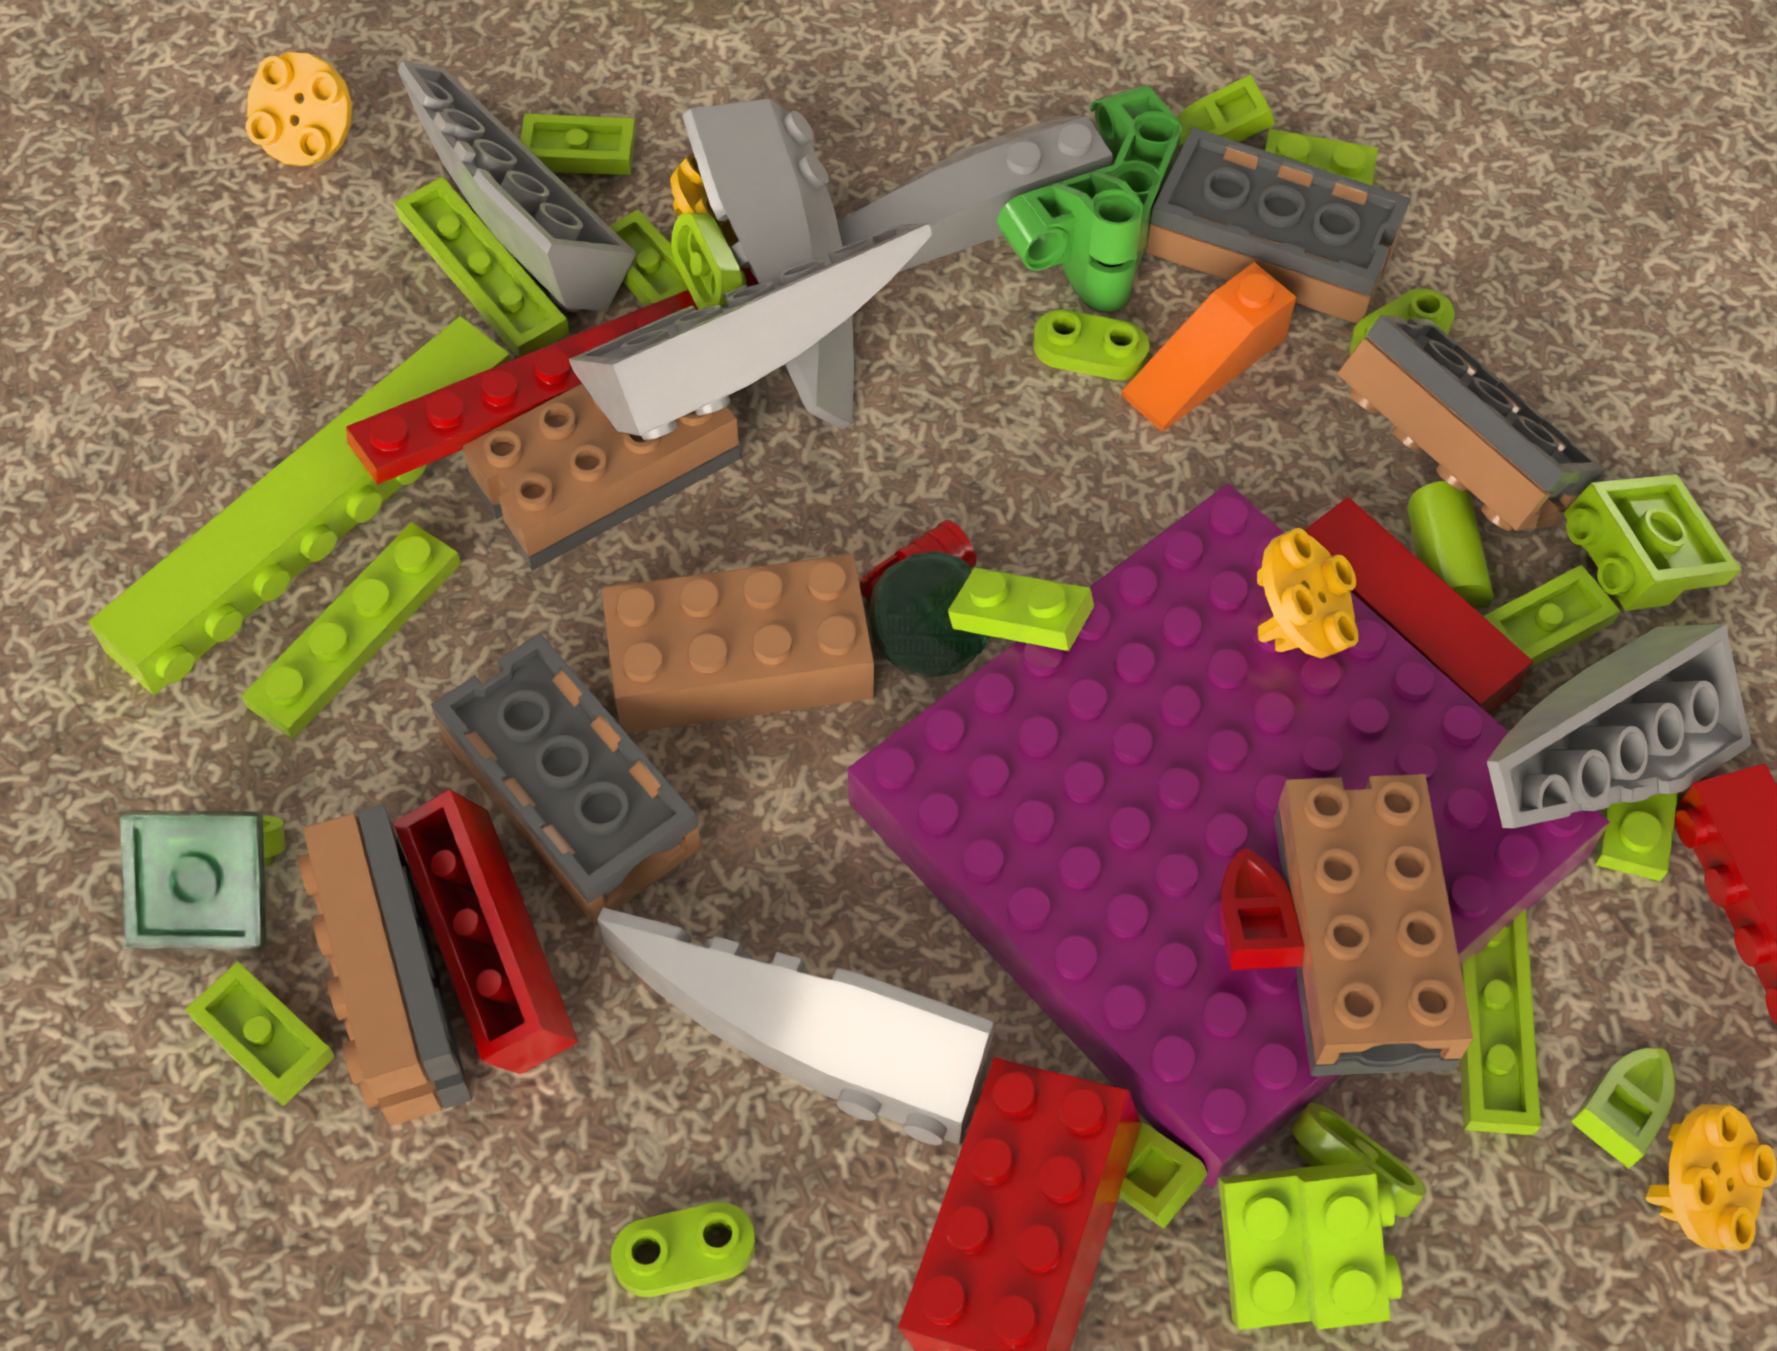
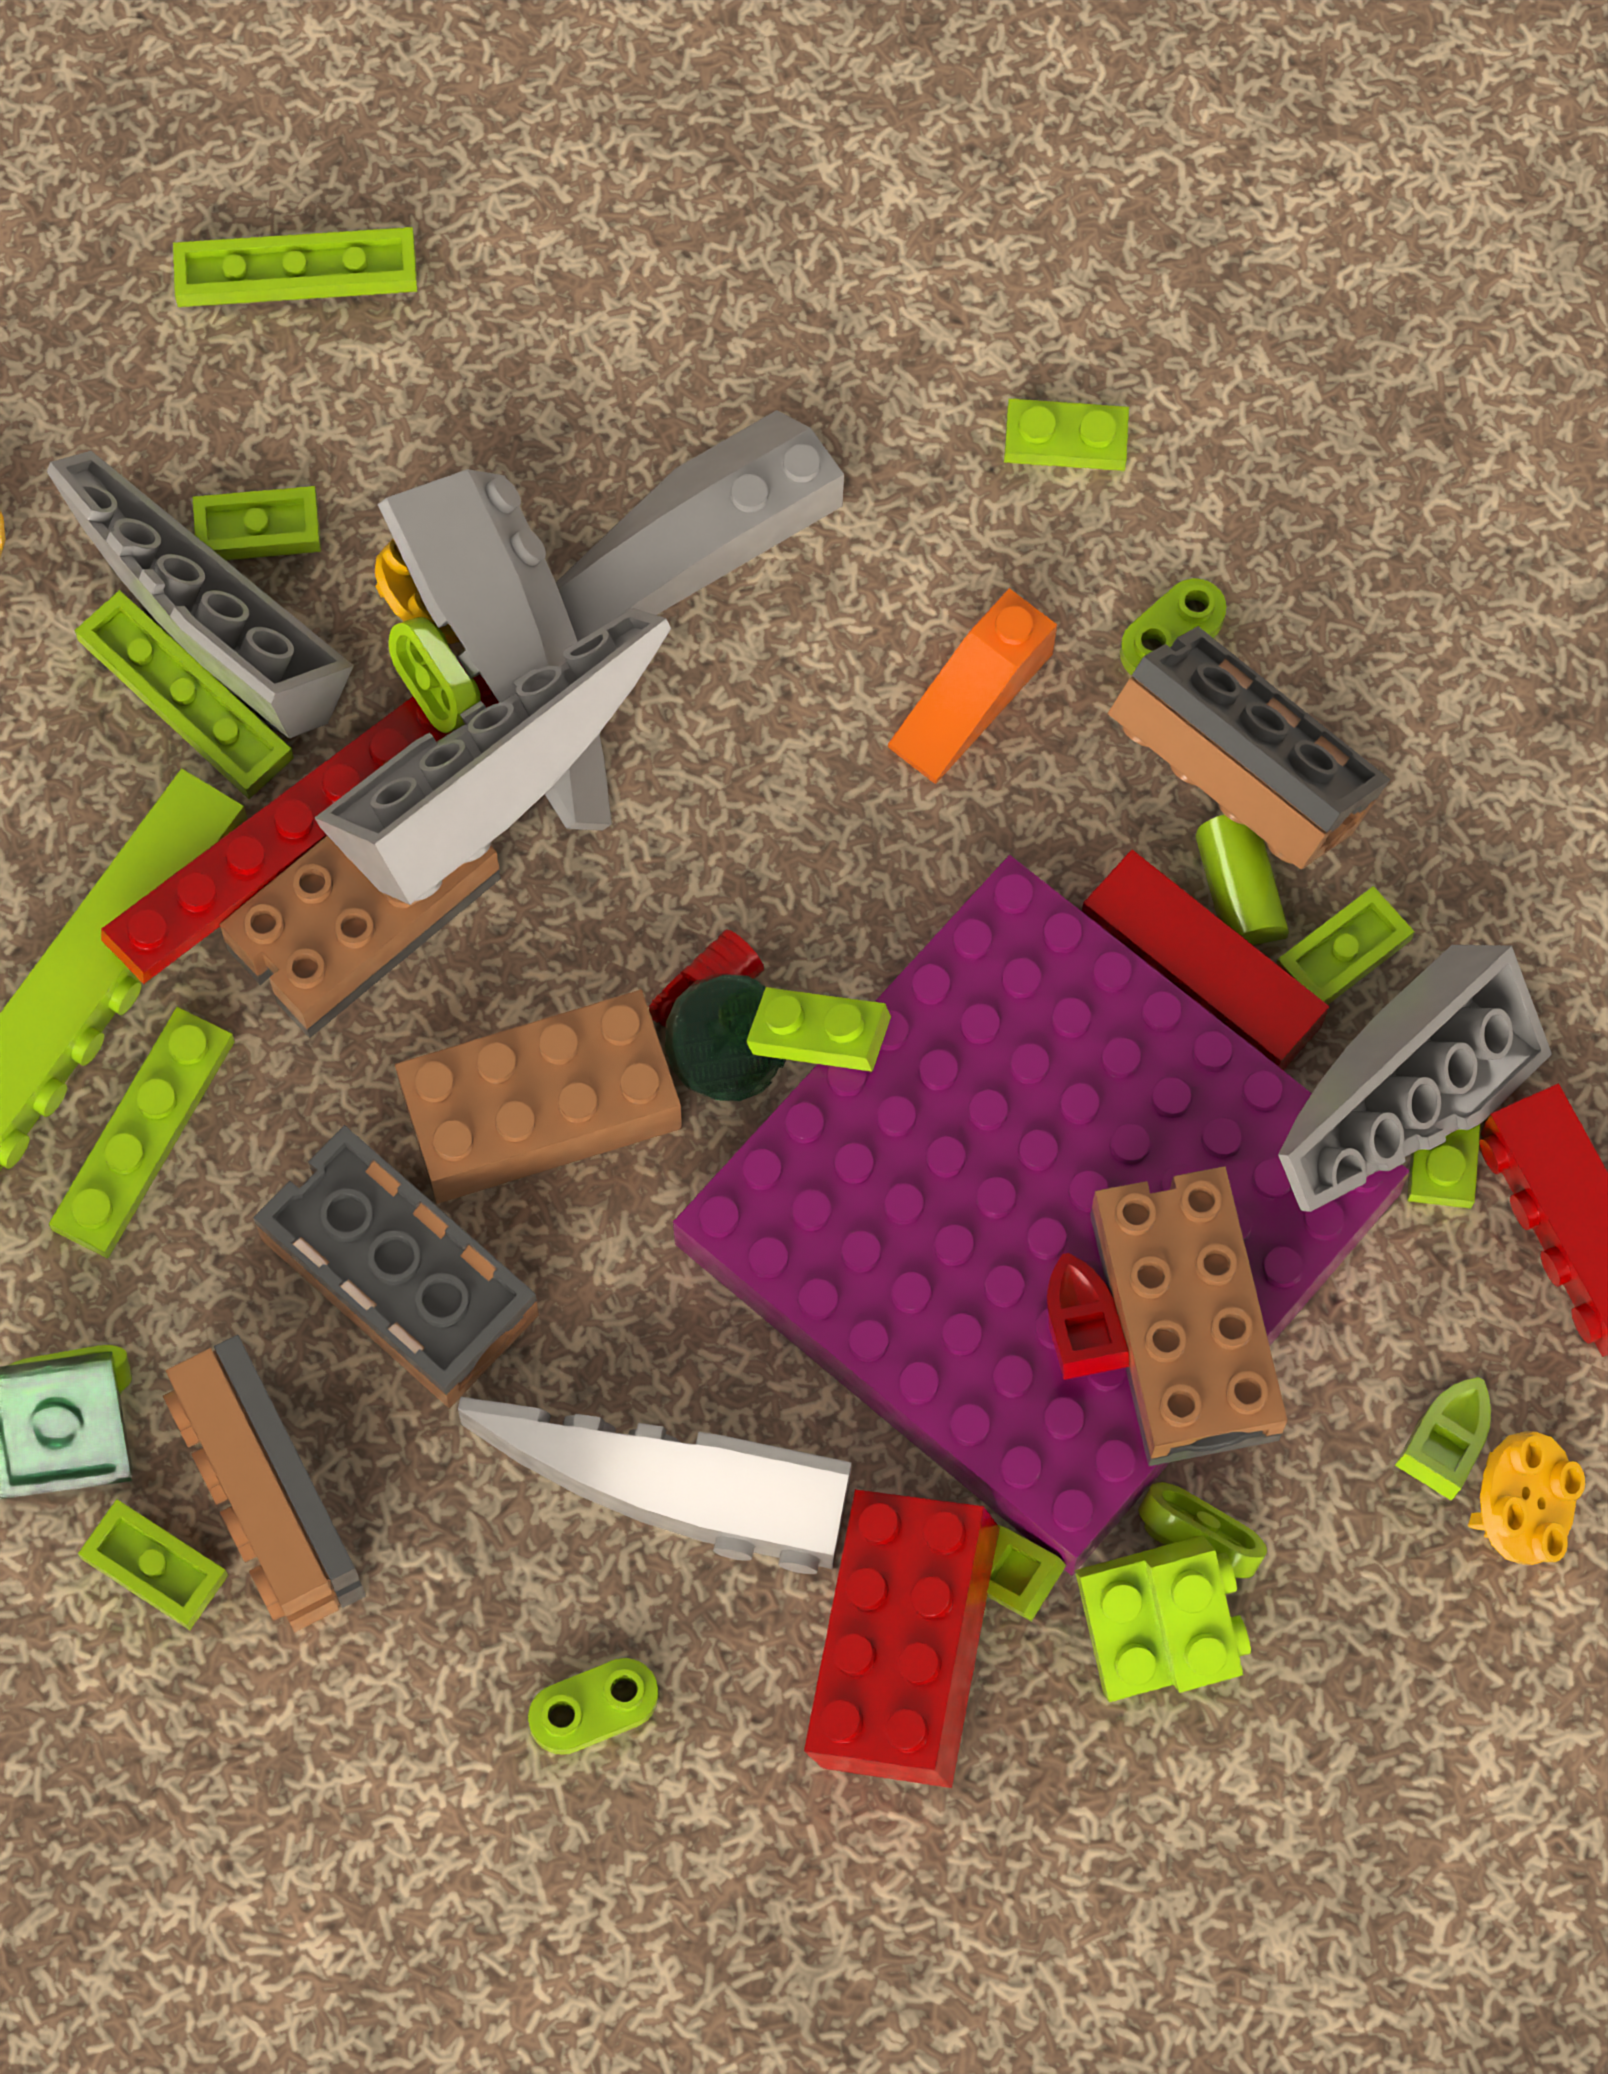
camera: 10 degrees left, 10 degrees up
(485, 933) = (350, 1435): red brick -> none
(653, 270) = (373, 680): lime plate -> none
(1090, 344) = (848, 695): lime plate -> none
(1101, 218) = (831, 551): bright green connector -> none
(1229, 112) = (954, 390): lime plate -> none
(1296, 221) = (1028, 526): dark grey piece -> none
(1307, 596) = (1100, 985): yellow plate -> none
(1501, 1060) = (1324, 1387): lime plate -> none
(1648, 540) = (1439, 847): lime plate -> none

